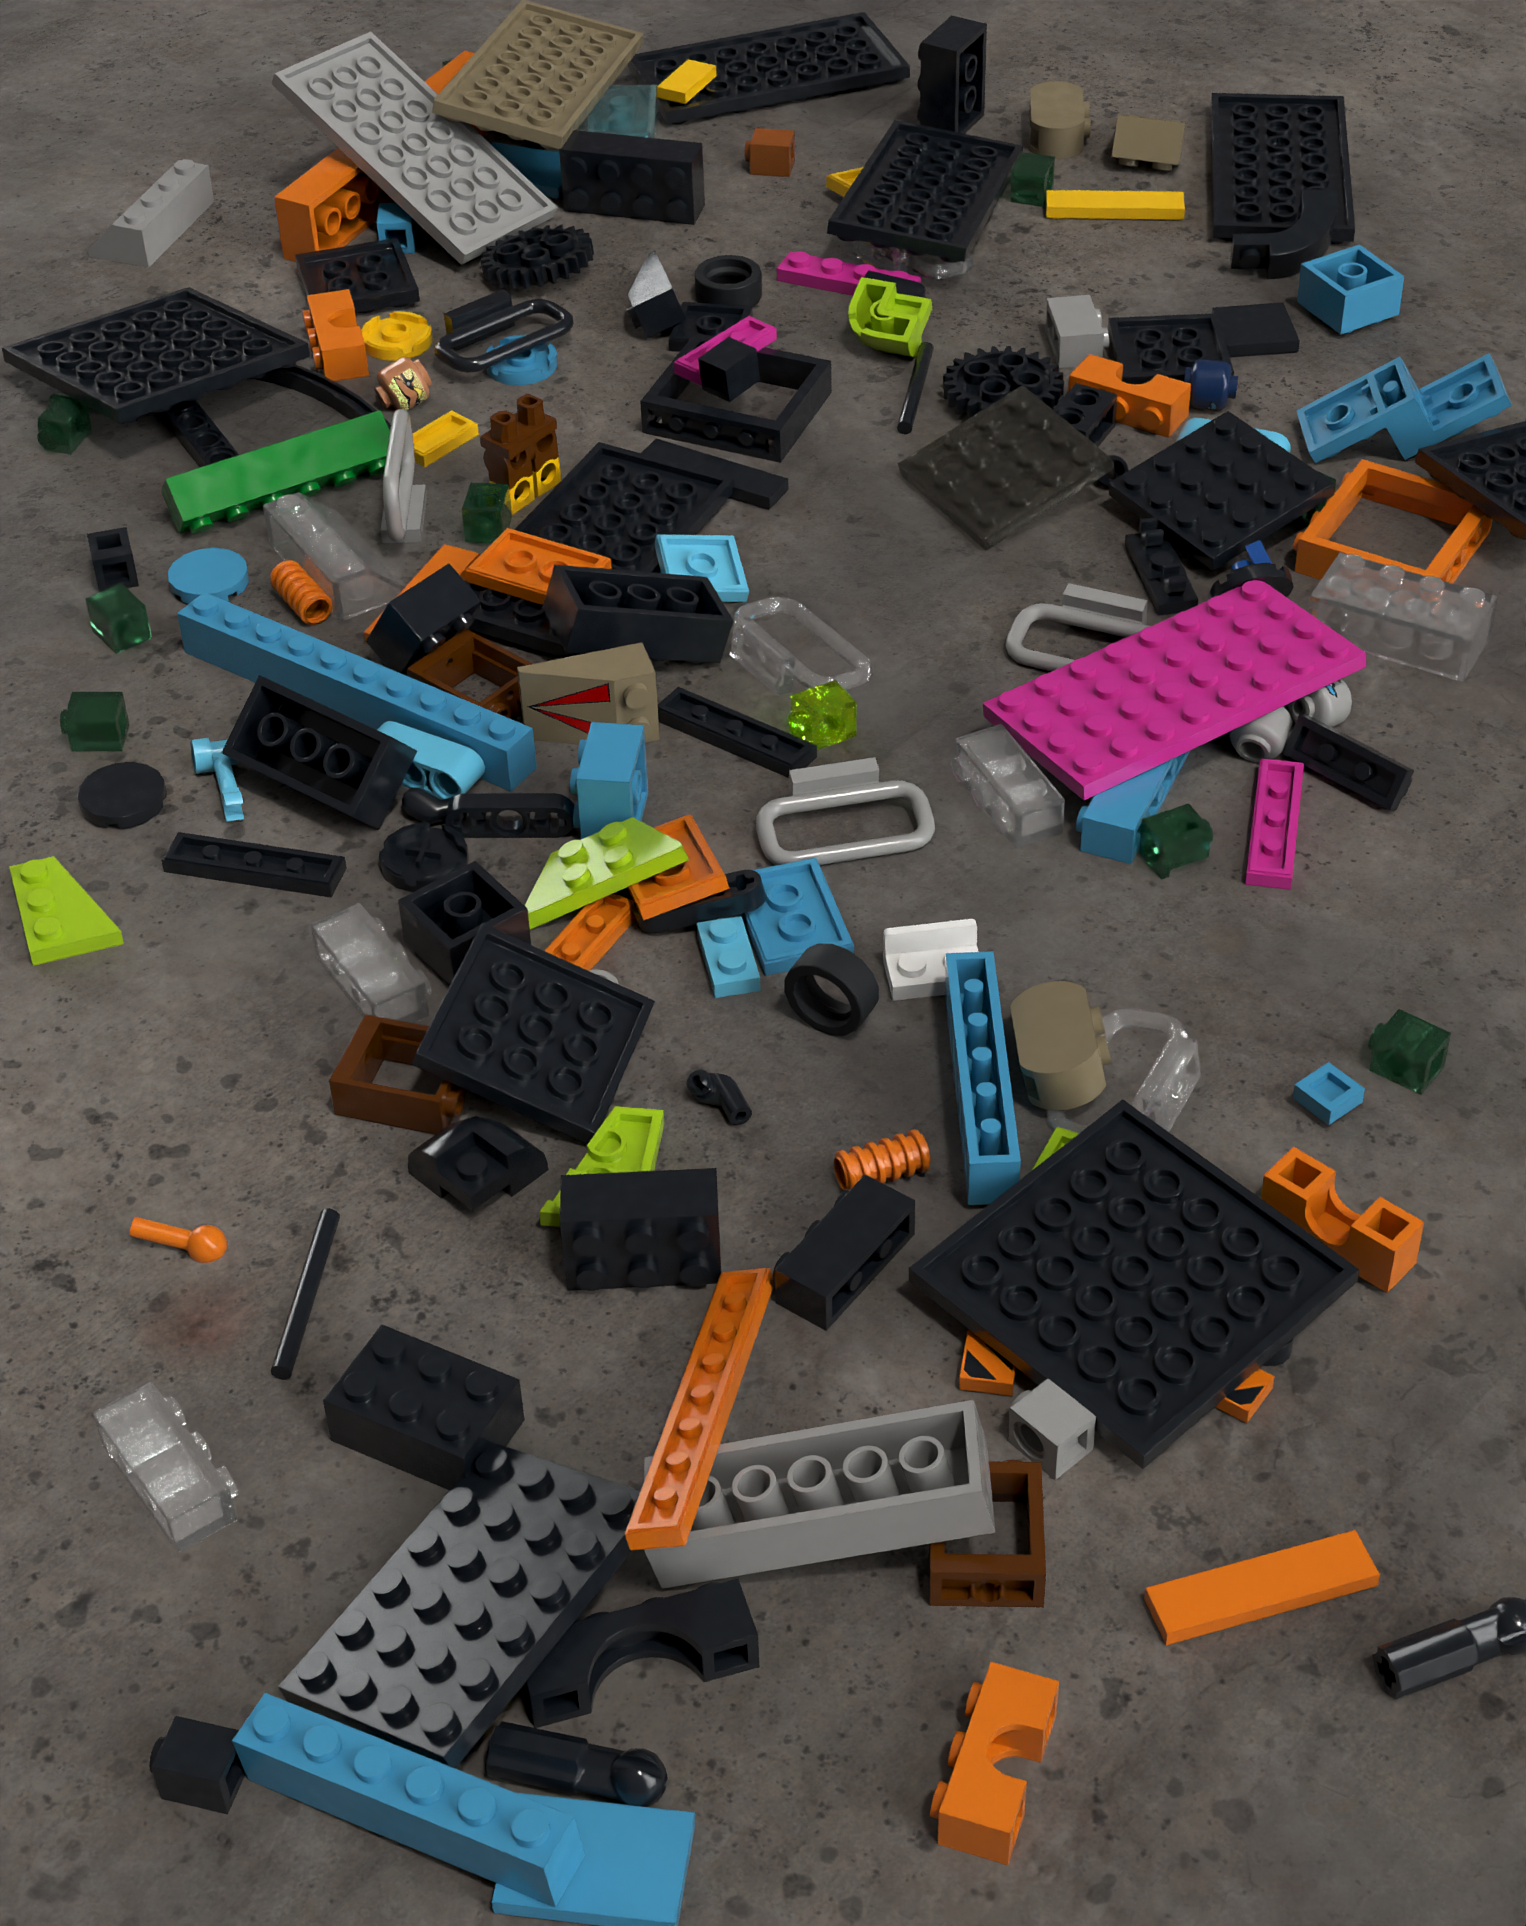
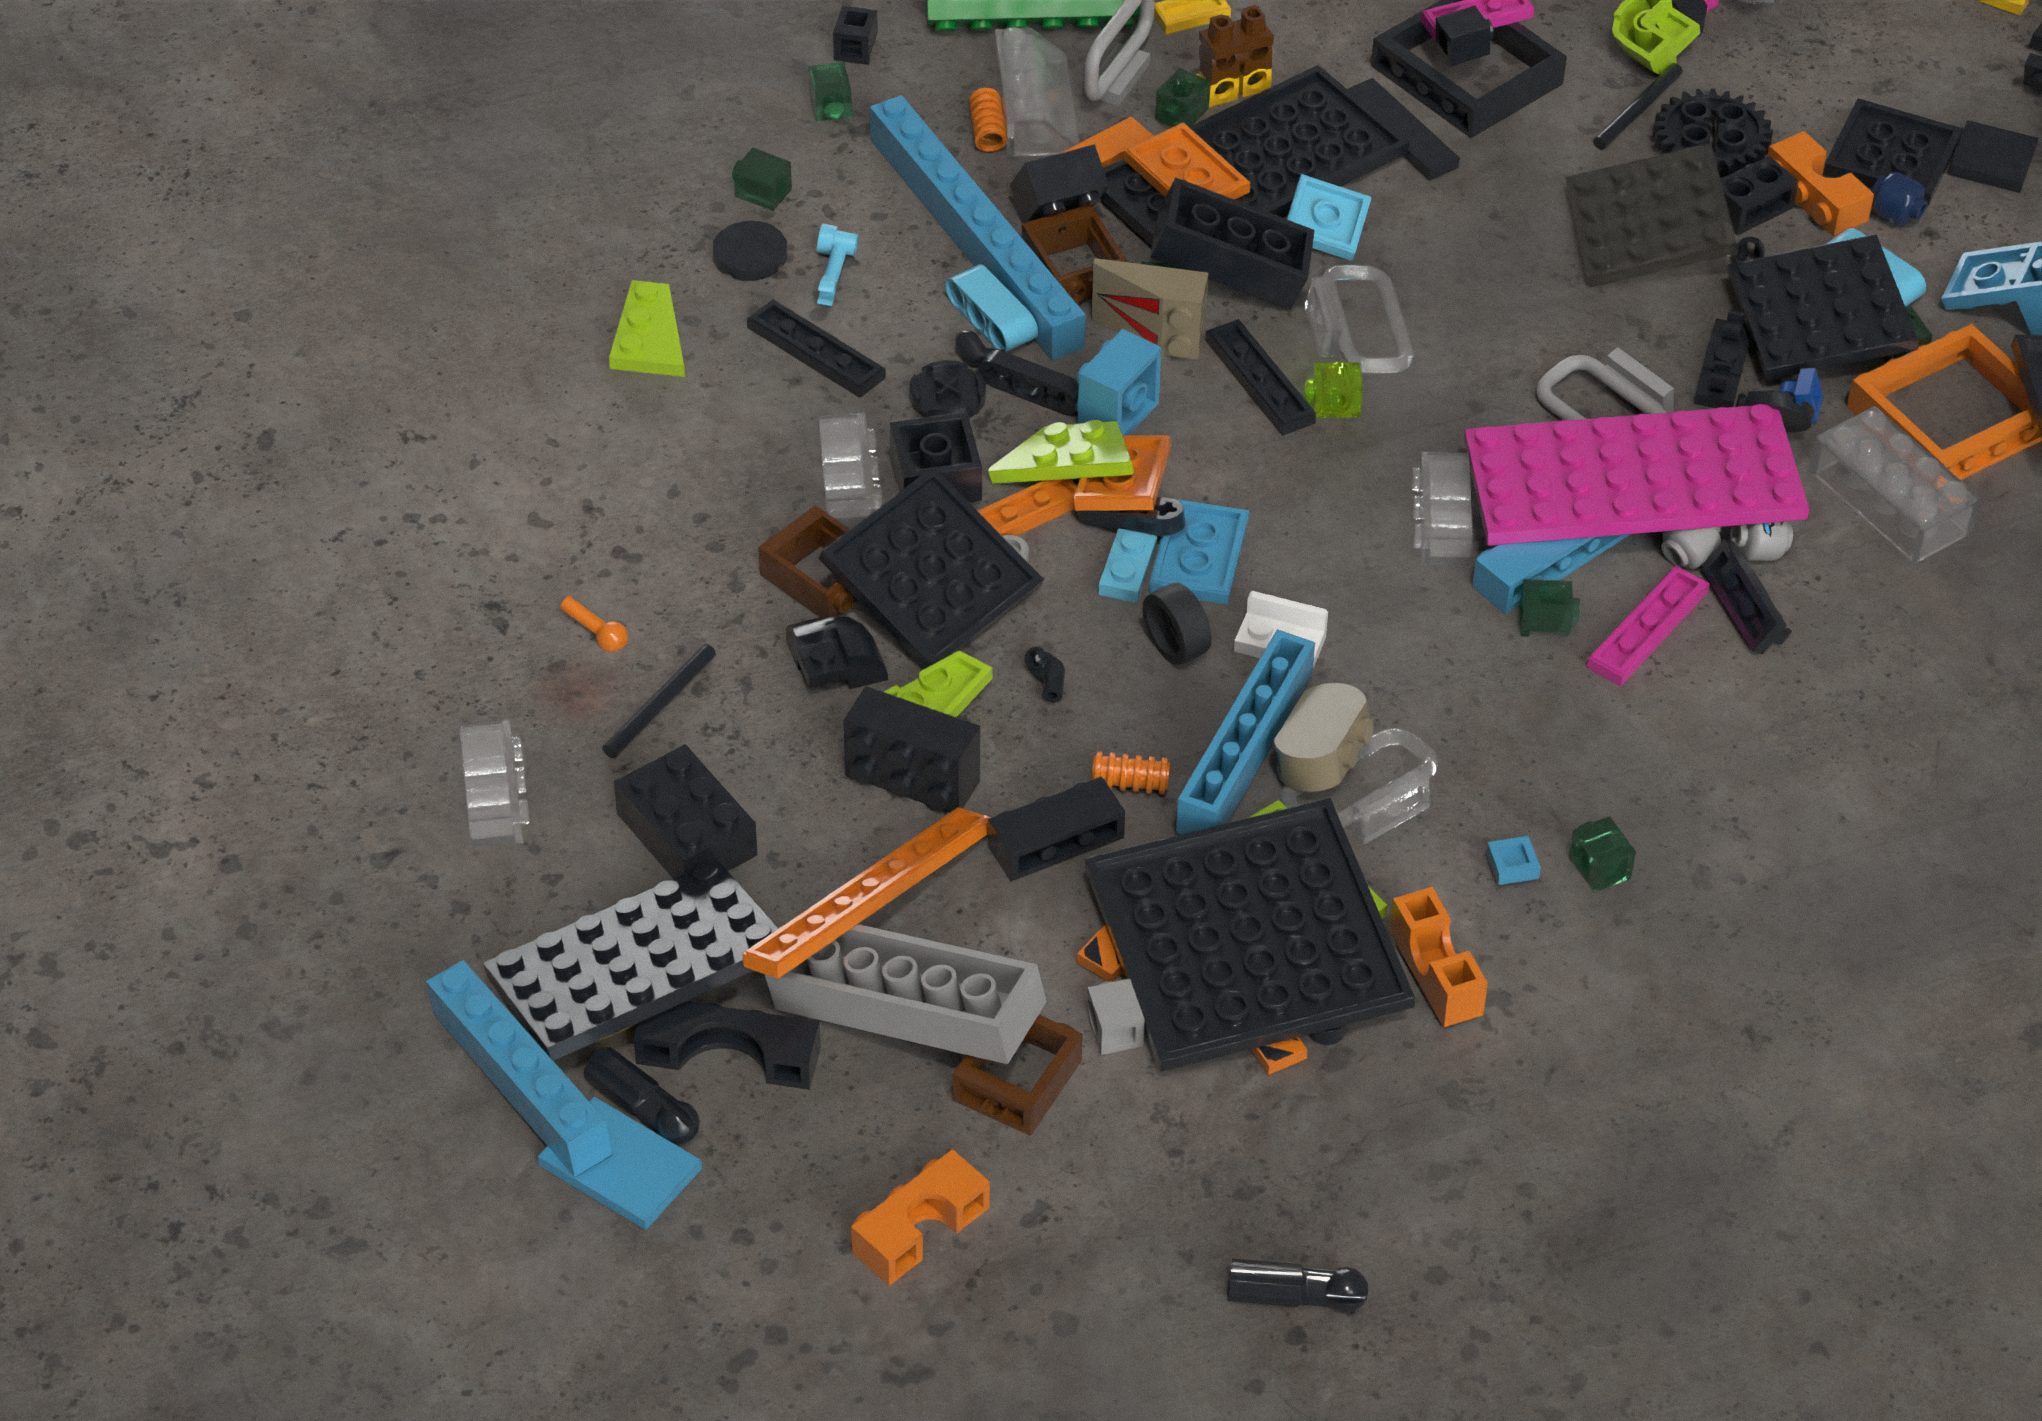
camera: 25 degrees right, 5 degrees up
(197, 1765) = (401, 990): black brick -> none
(209, 571) = (925, 76): dark azure tile -> none
(319, 752) = (909, 272): black brick -> none
(840, 786) = (1302, 456): light grey bar -> none
(1074, 329) = (1819, 100): light grey brick -> none
(1261, 1587) = (1190, 1187): orange tile -> none

